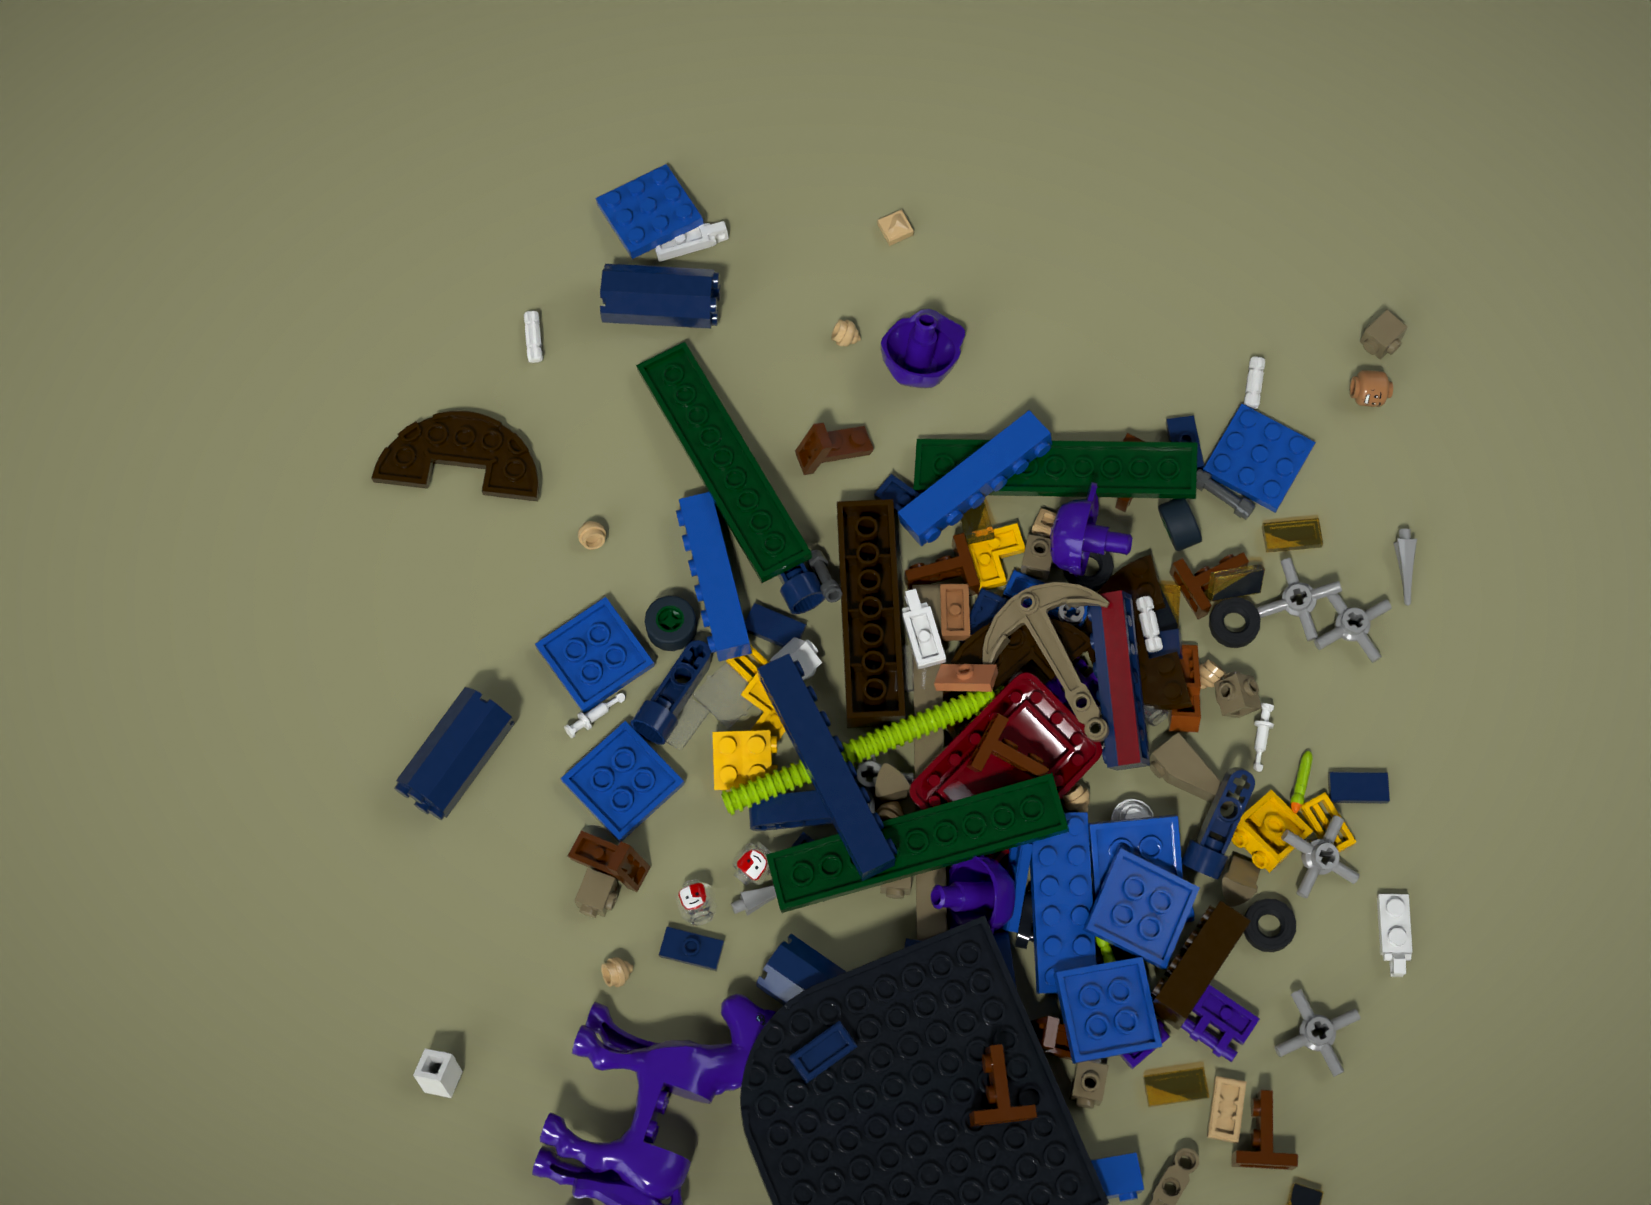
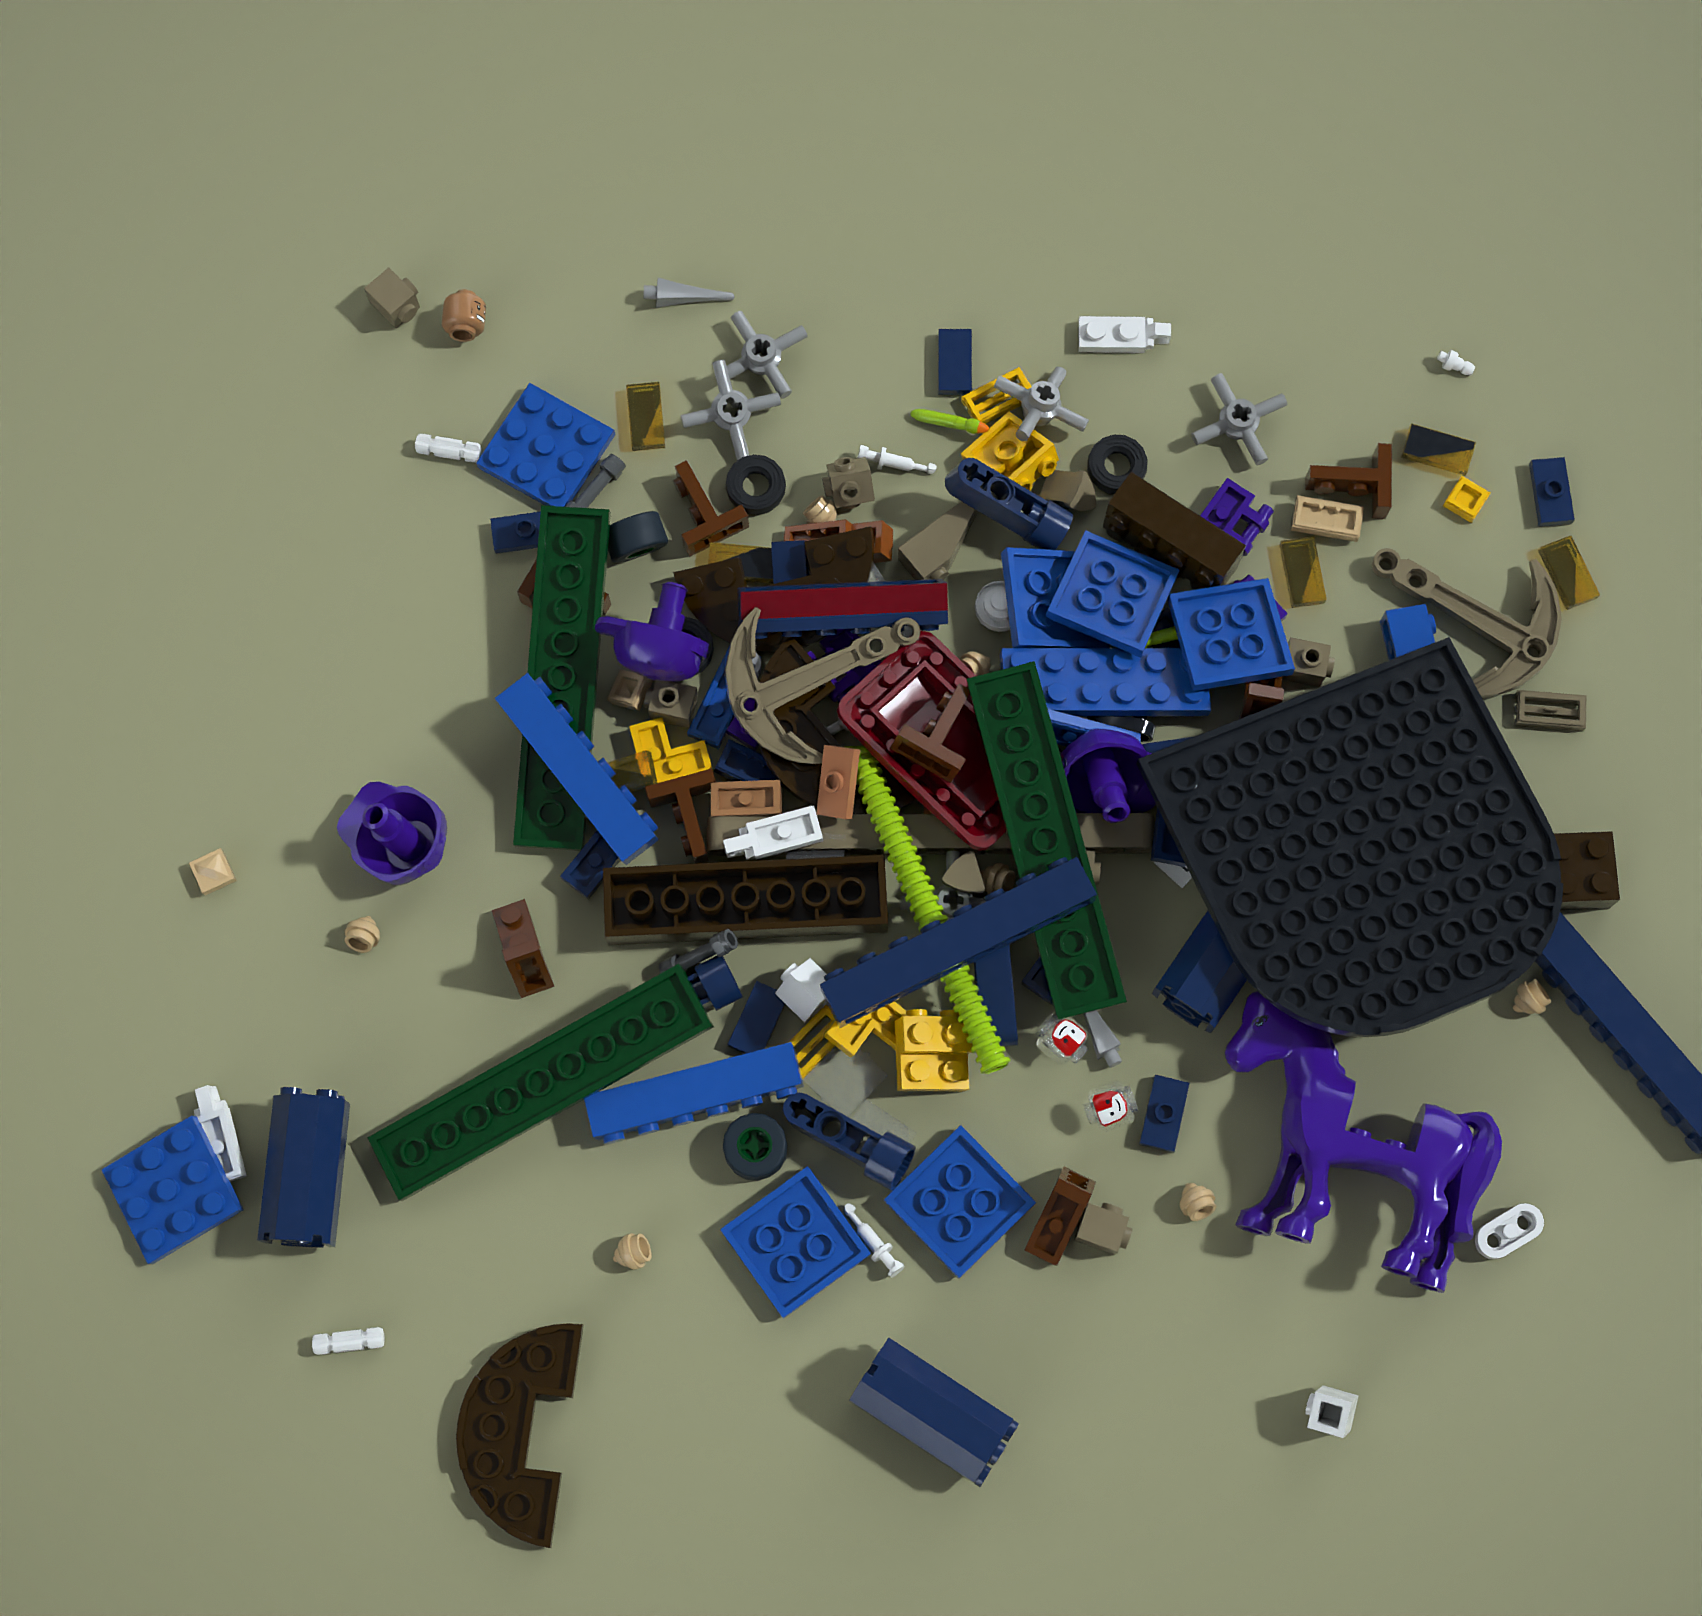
camera: 90 degrees left, 5 degrees up
(822, 1052) = (1311, 939): dark blue tile -> none
(998, 1093) = (1347, 745): reddish brown bracket -> none
(1149, 624) = (766, 573): white axle -> none
(1235, 582) = (711, 477): tile -> none

